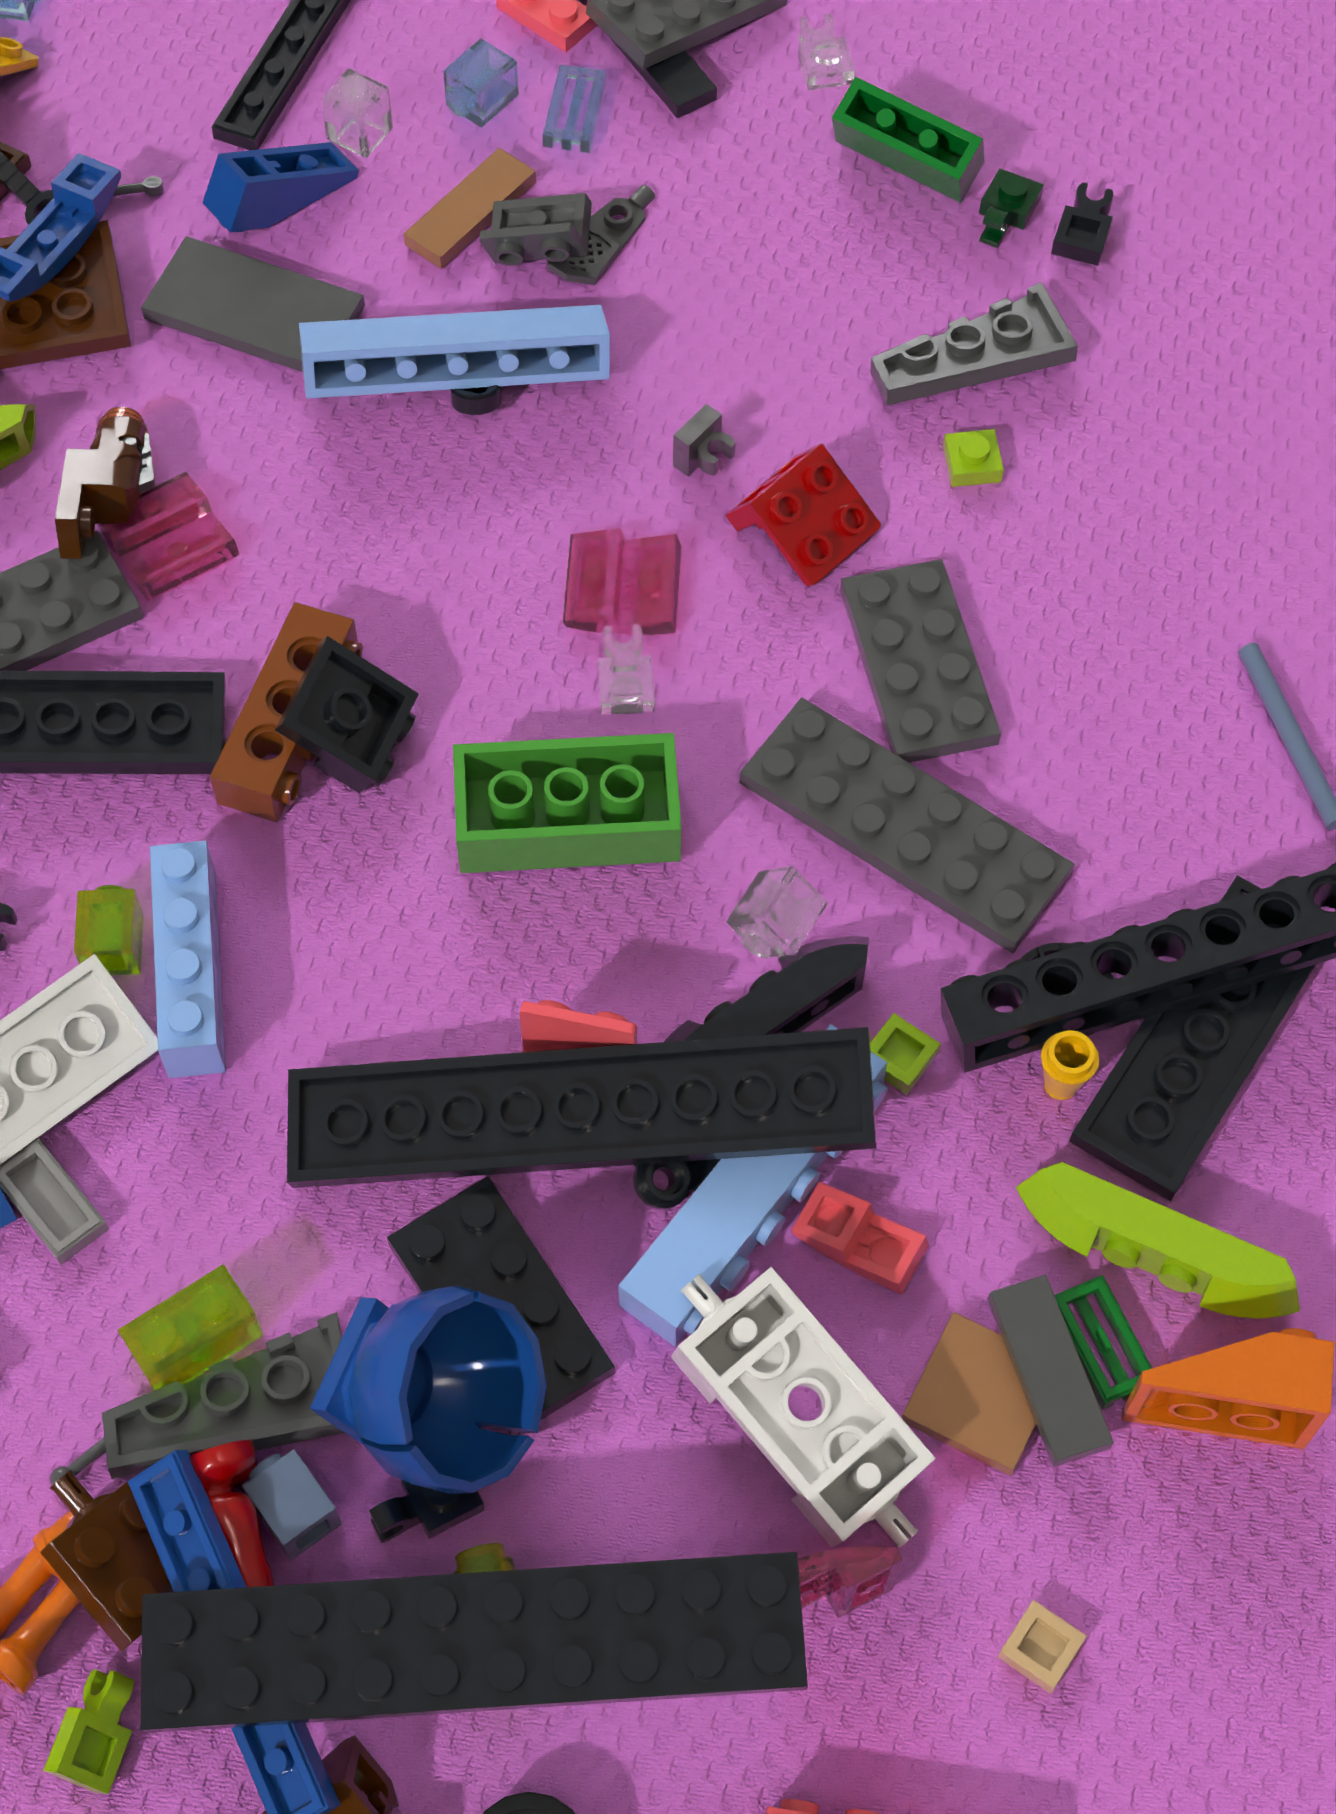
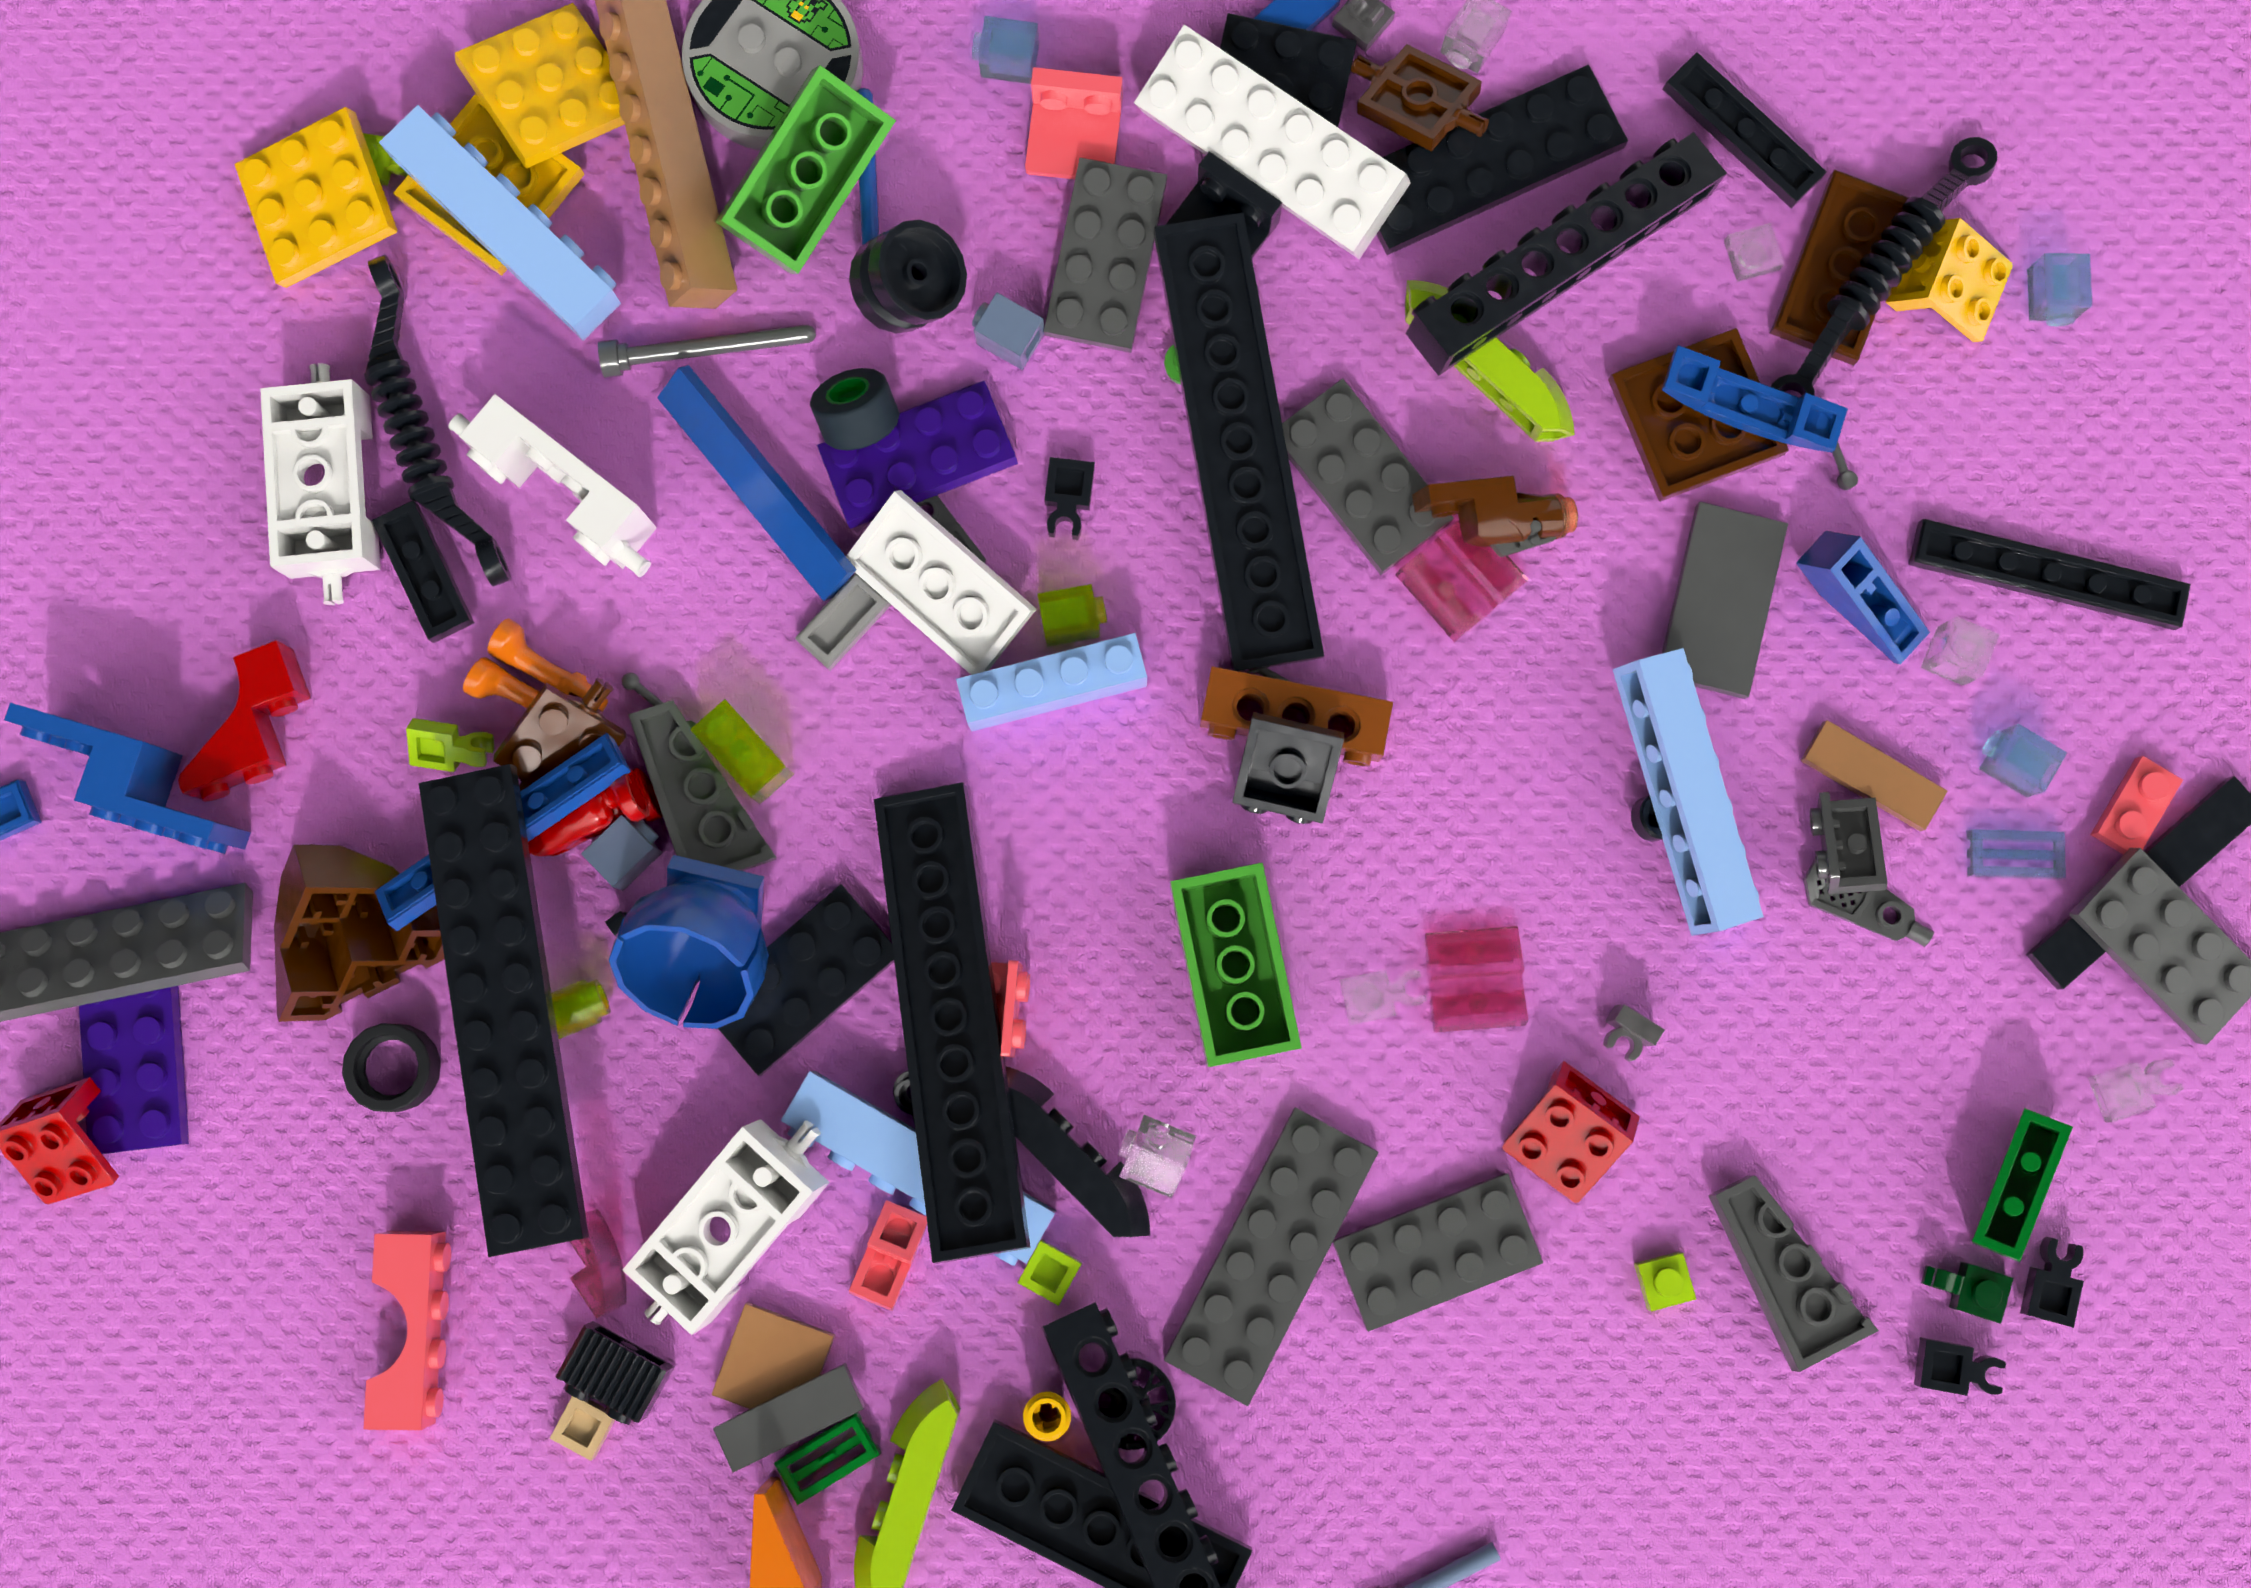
camera: 85 degrees right, 20 degrees up
(974, 1589) = (614, 1373): none -> black brick
(1012, 141) = (2051, 1291): none -> black plate

